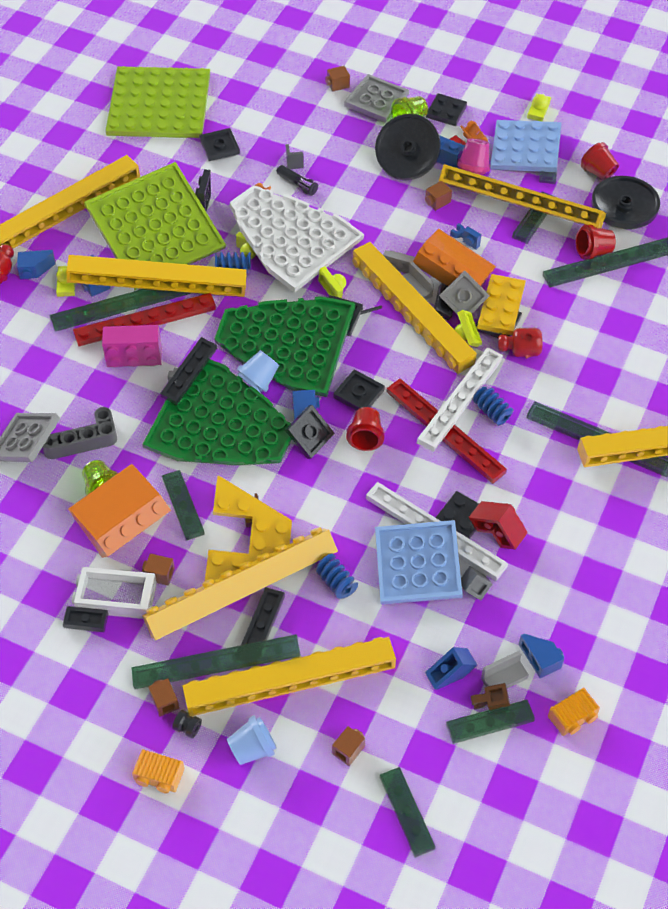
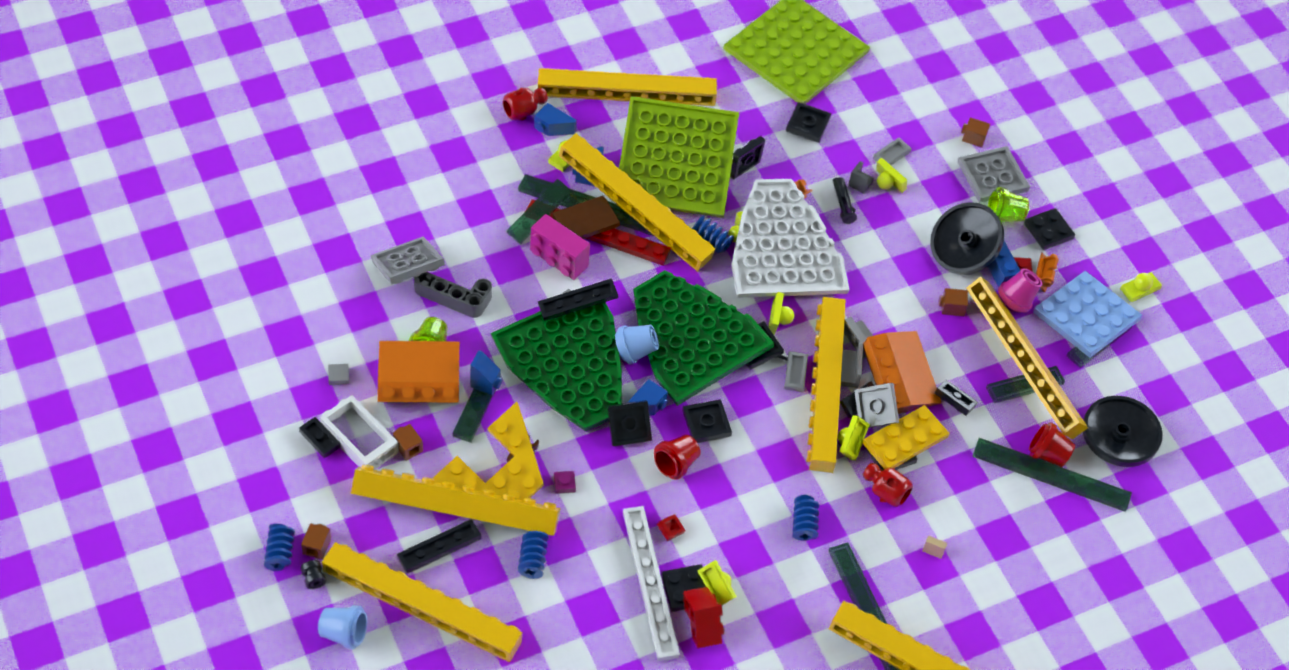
camera: 35 degrees right, 0 degrees up
(51, 561) = (338, 374): none -> light grey tile
(89, 333) = (545, 204): none -> clear green tile
(132, 309) = (588, 217): none -> reddish brown tile
(138, 725) = (279, 547): none -> blue piece
(158, 771) = (260, 592): light orange brick -> none
(172, 475) = (484, 374): none -> blue slope
(216, 661) = (380, 546): clear green tile -> none
(296, 128) = (893, 152): none -> light grey tile
(303, 509) = (564, 482): none -> magenta plate
(312, 143) = (889, 177): none -> neon yellow tile
(383, 314) = (796, 371): none -> light grey tile
(410, 482) = (671, 527): none -> red tile
(418, 562) = (607, 594): light blue plate -> none
(455, 438) = (745, 509): red plate -> none
(459, 400) = (781, 490): white plate -> none
(470, 236) = (943, 358): blue plate -> none
(475, 583) = (637, 648): dark grey panel -> none
(482, 491) = (717, 582): none -> neon yellow tile
(508, 256) = (956, 397): none -> black plate
(591, 361) = (934, 547): none -> tile
(599, 161) = (1138, 376): red piece -> none

